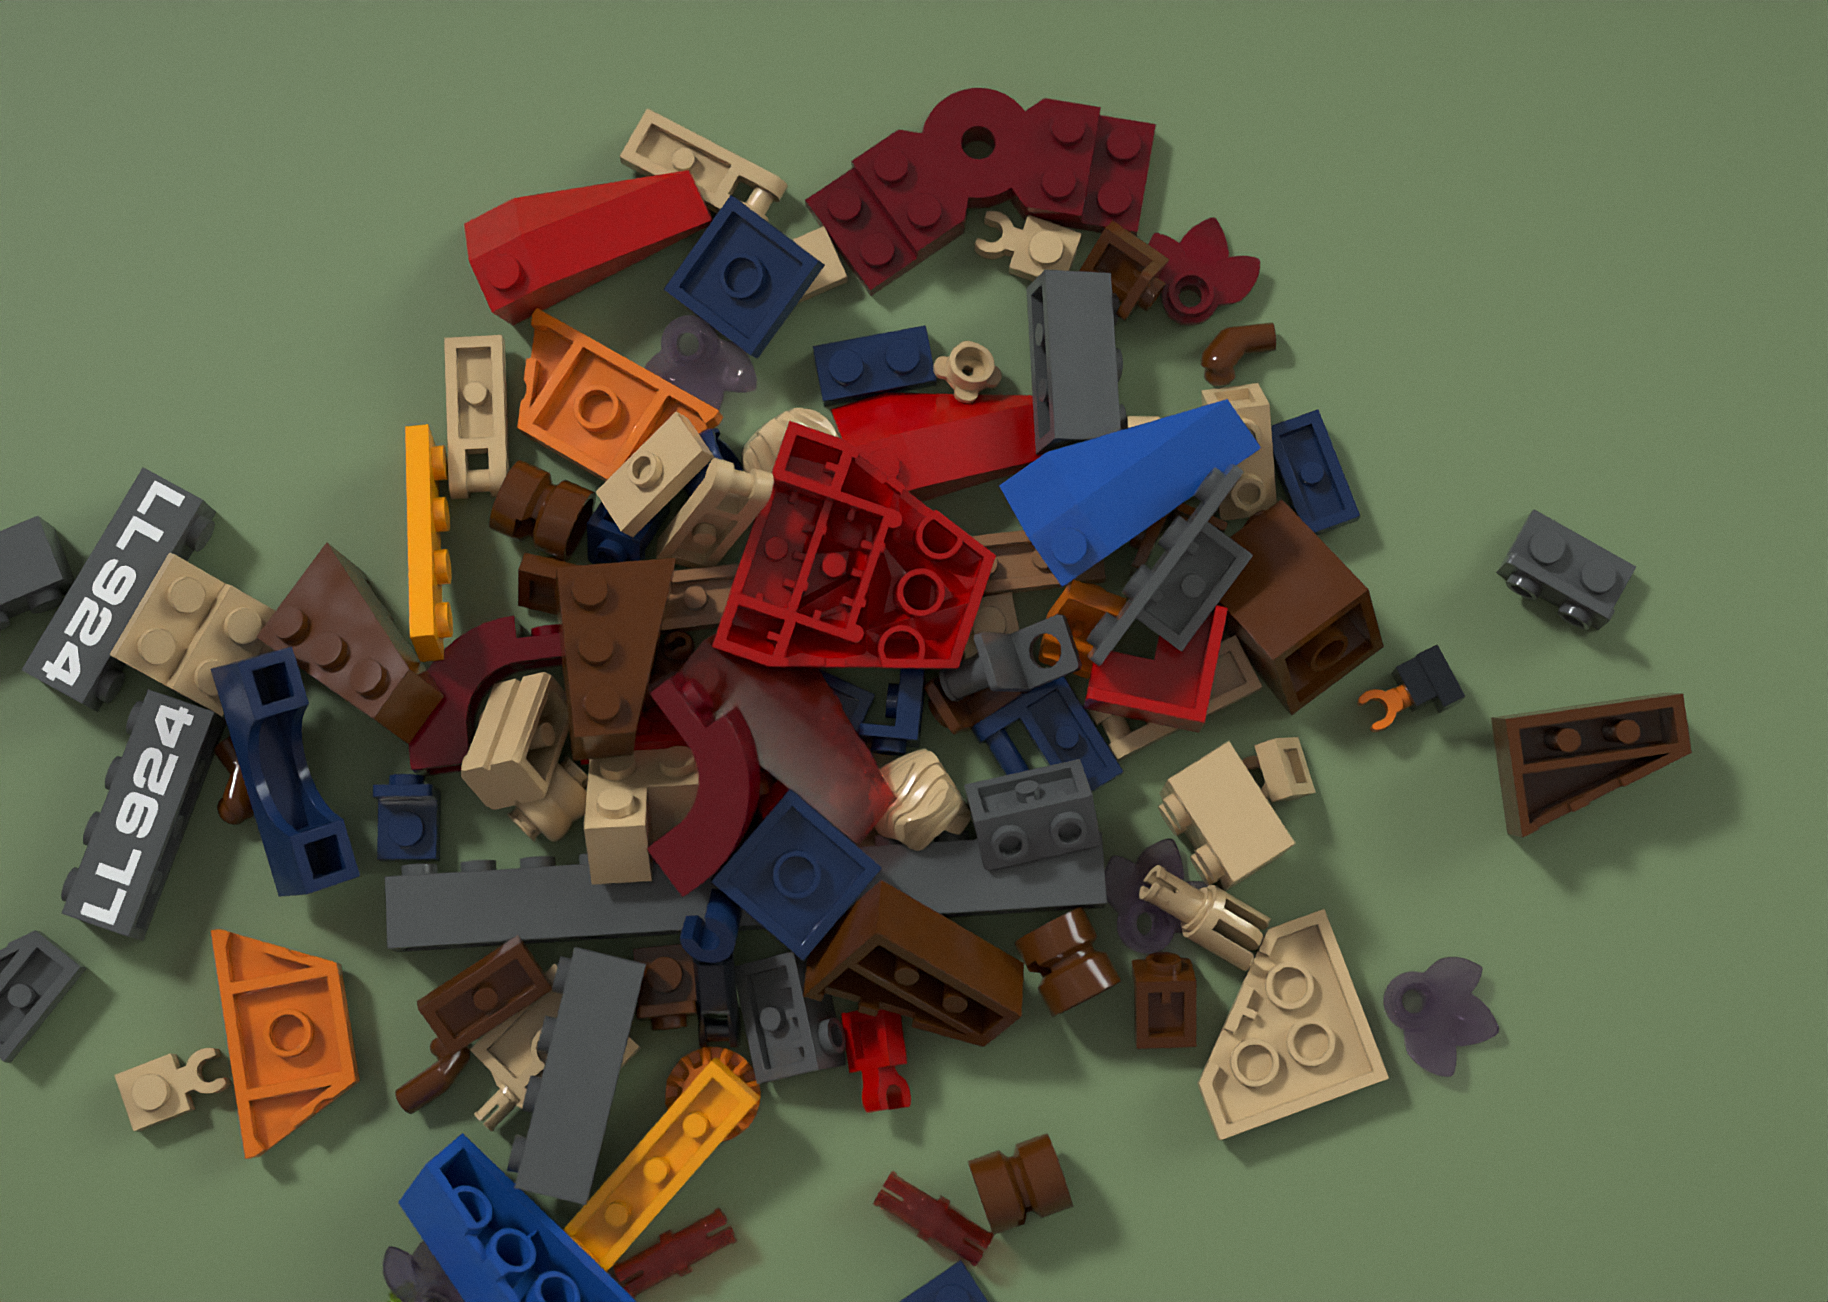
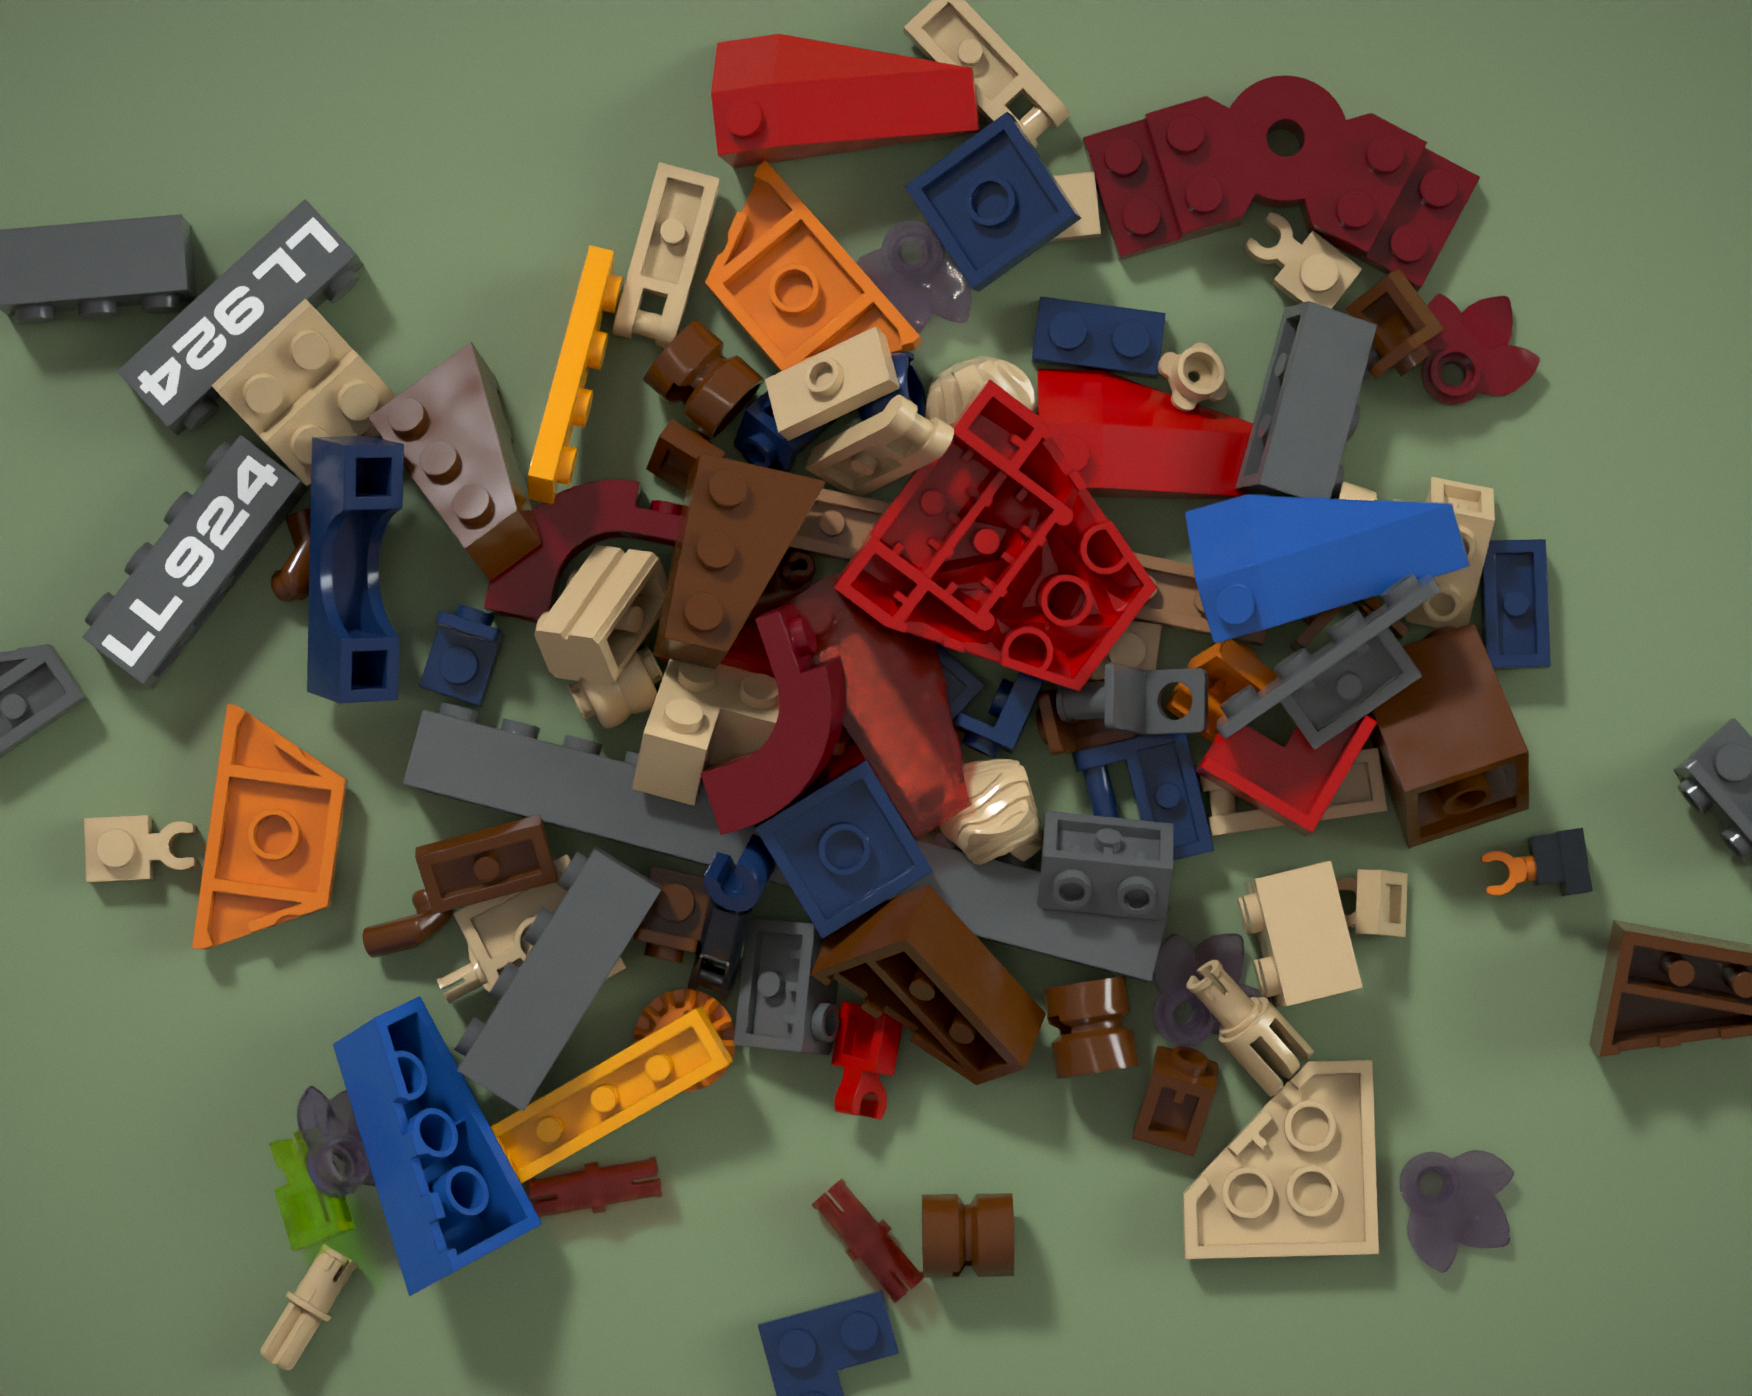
camera: 15 degrees right, 5 degrees up
(1231, 345) = (1477, 441): reddish brown arm -> none

